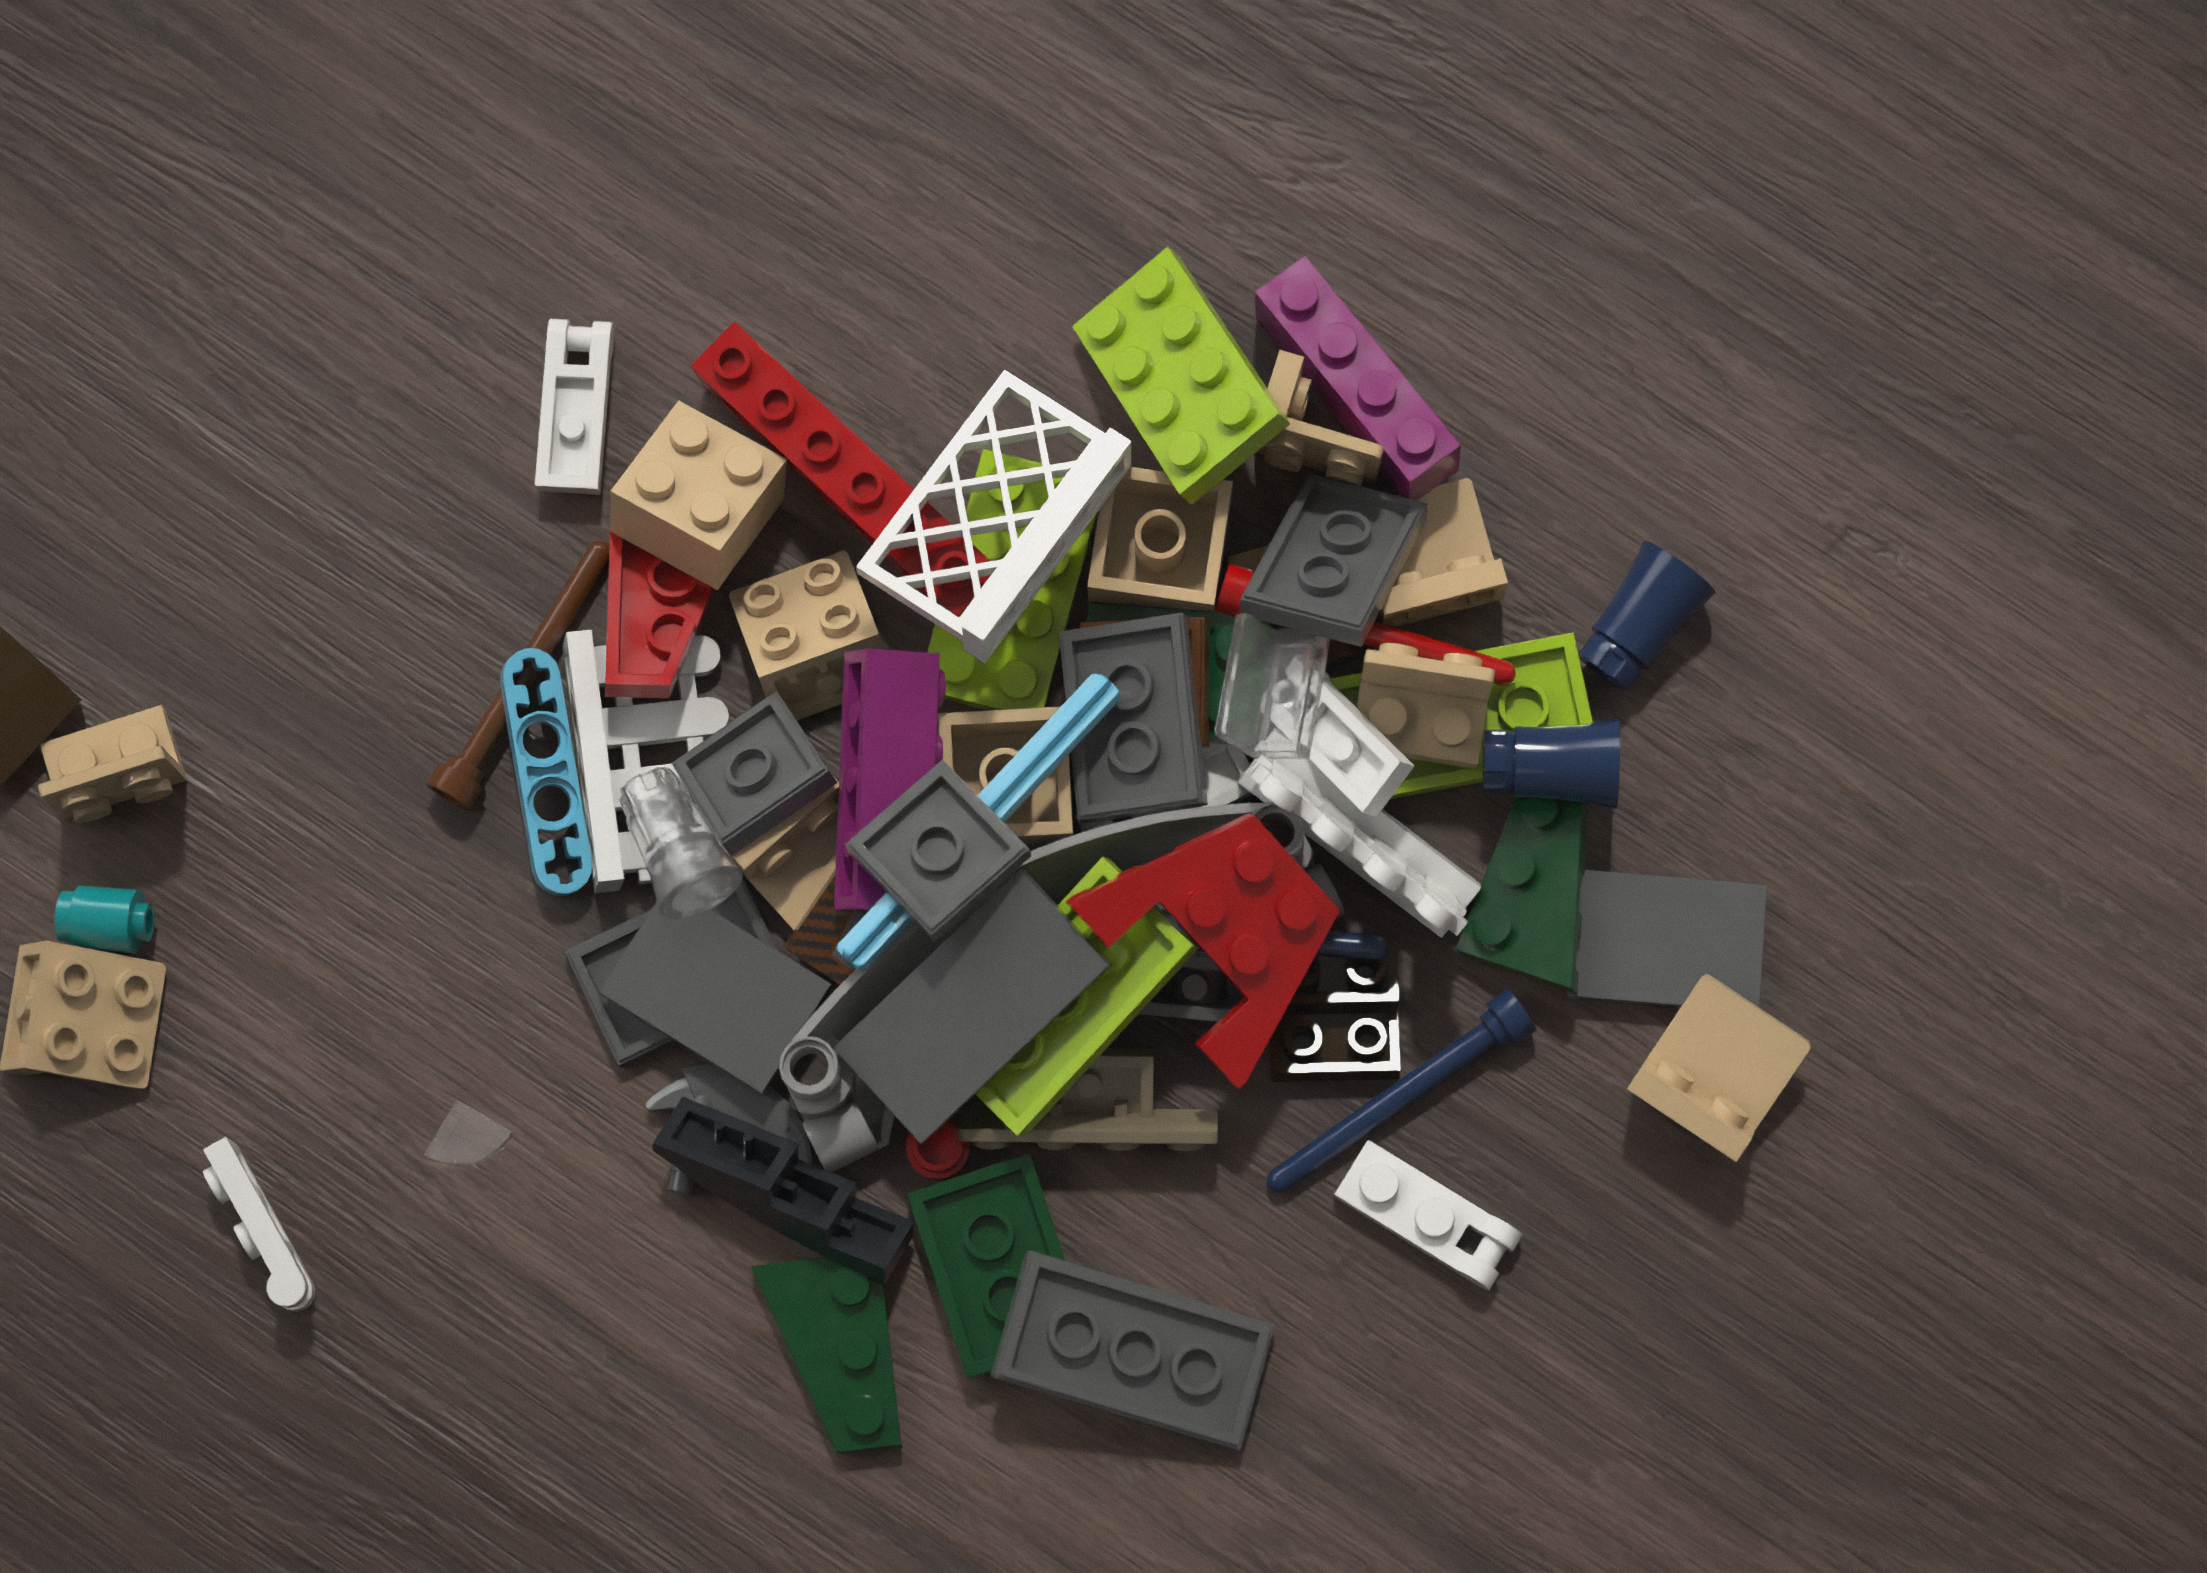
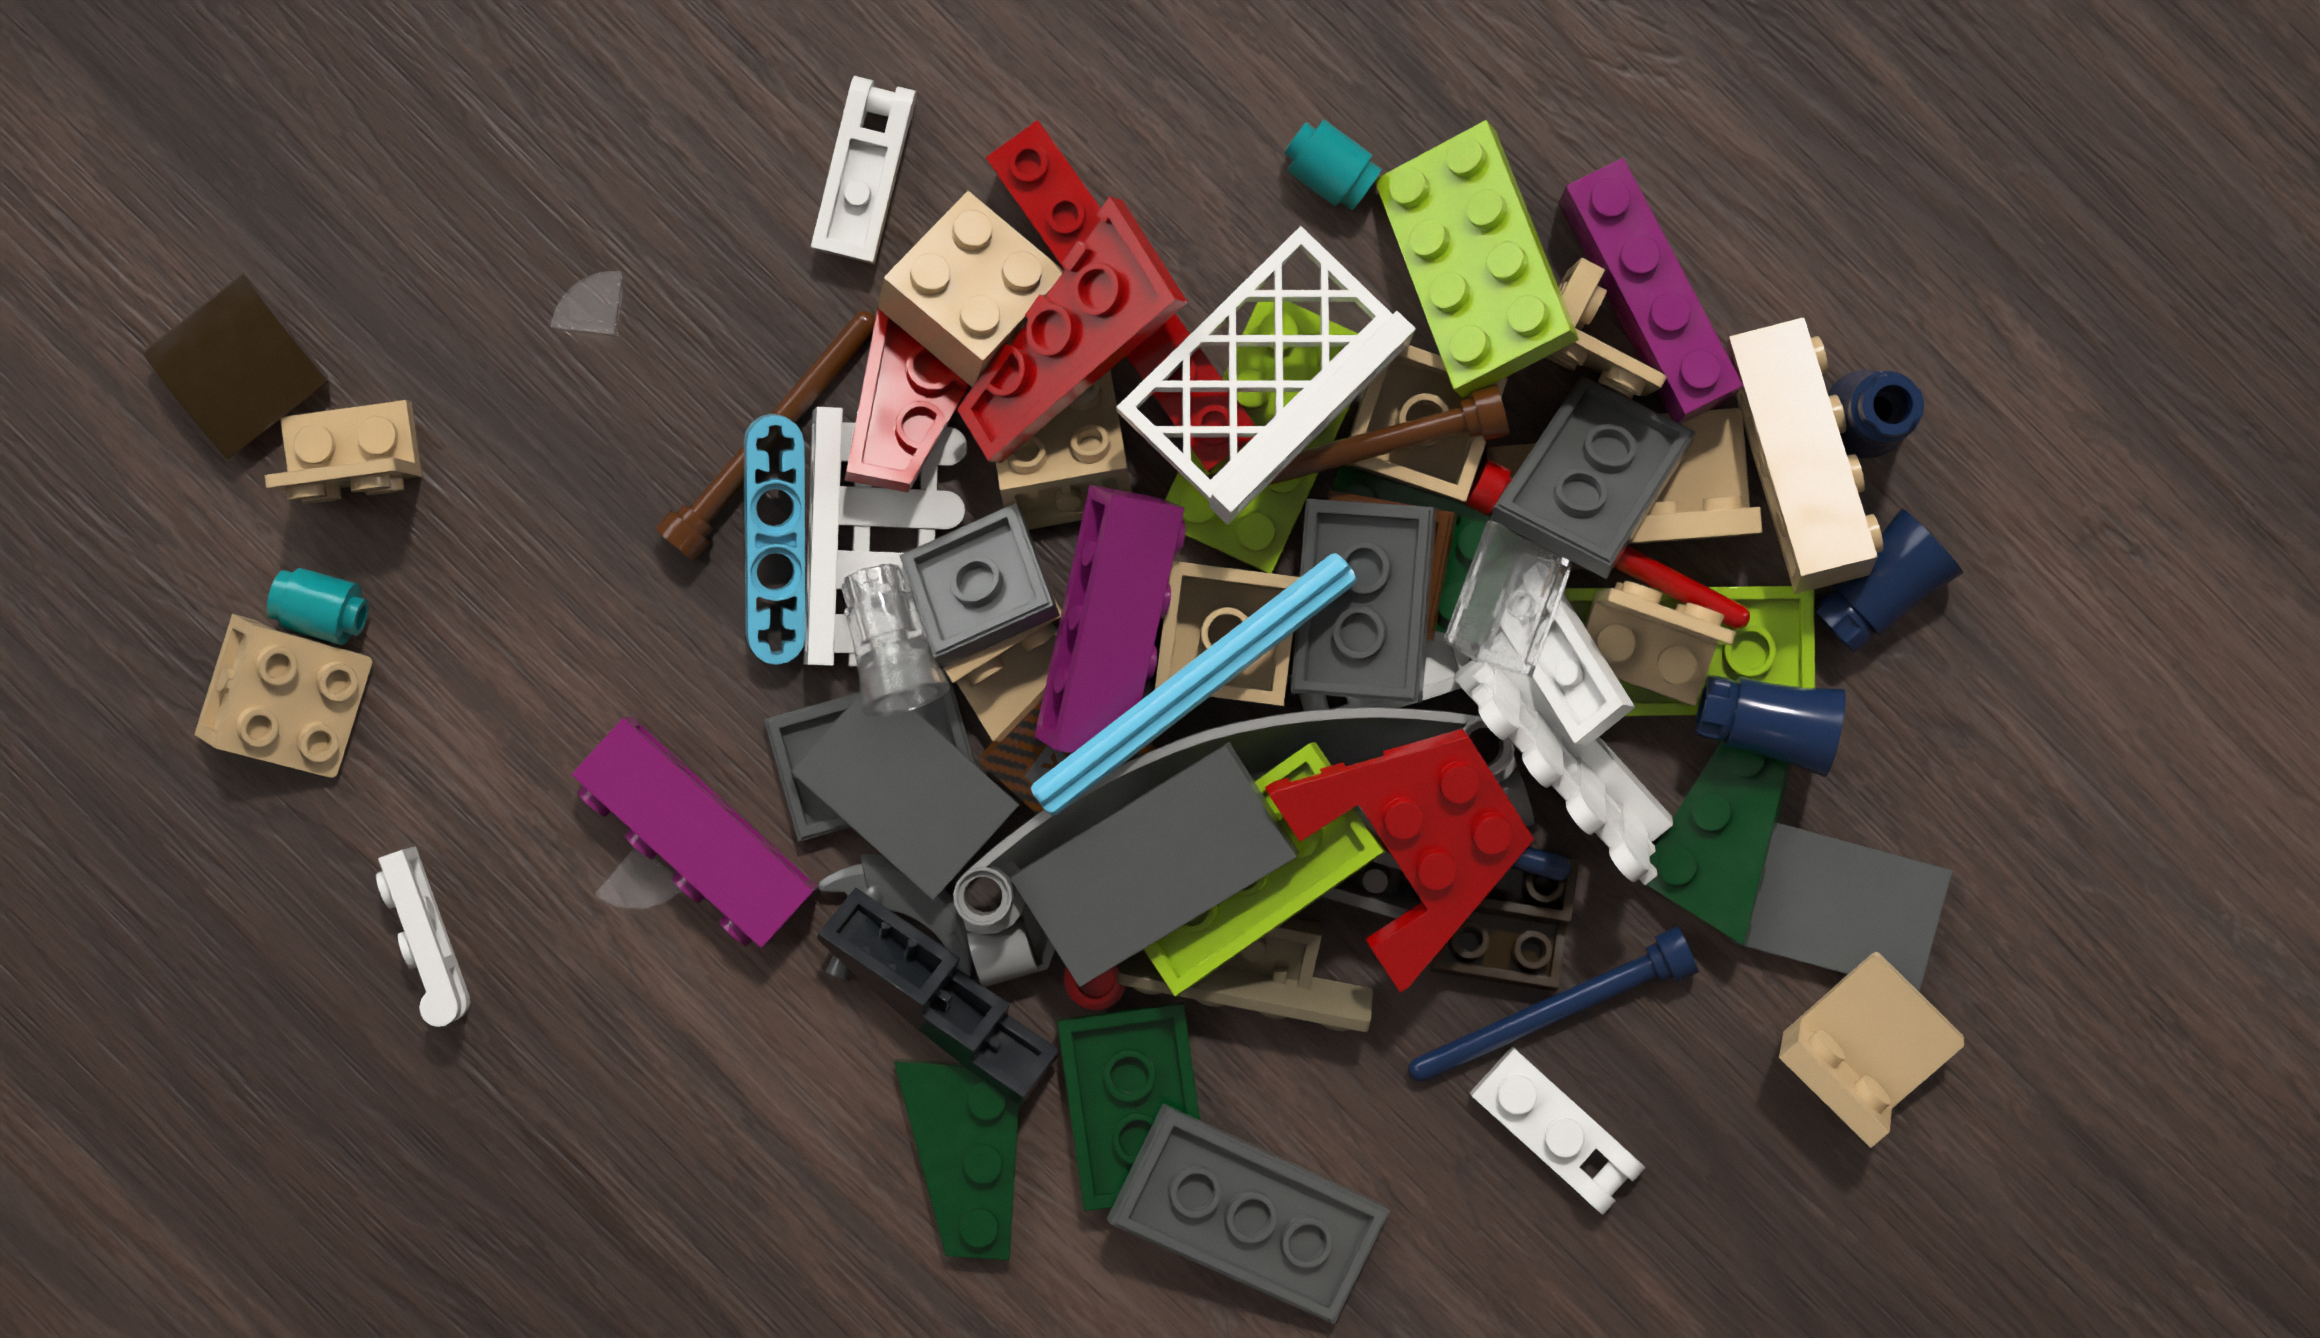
camera: 10 degrees right, 10 degrees up
(329, 583) = (591, 305): none -> clear tile
(514, 1072) = (694, 832): none -> magenta brick
(819, 490) = (1085, 325): none -> red wing
(938, 850) = (1148, 712): dark grey tile -> none
(1027, 318) = (1331, 164): none -> teal brick
(1209, 519) = (1478, 416): none -> reddish brown piece
(1534, 508) = (1802, 456): none -> brick
(1594, 475) = (1865, 432): none -> dark blue plant

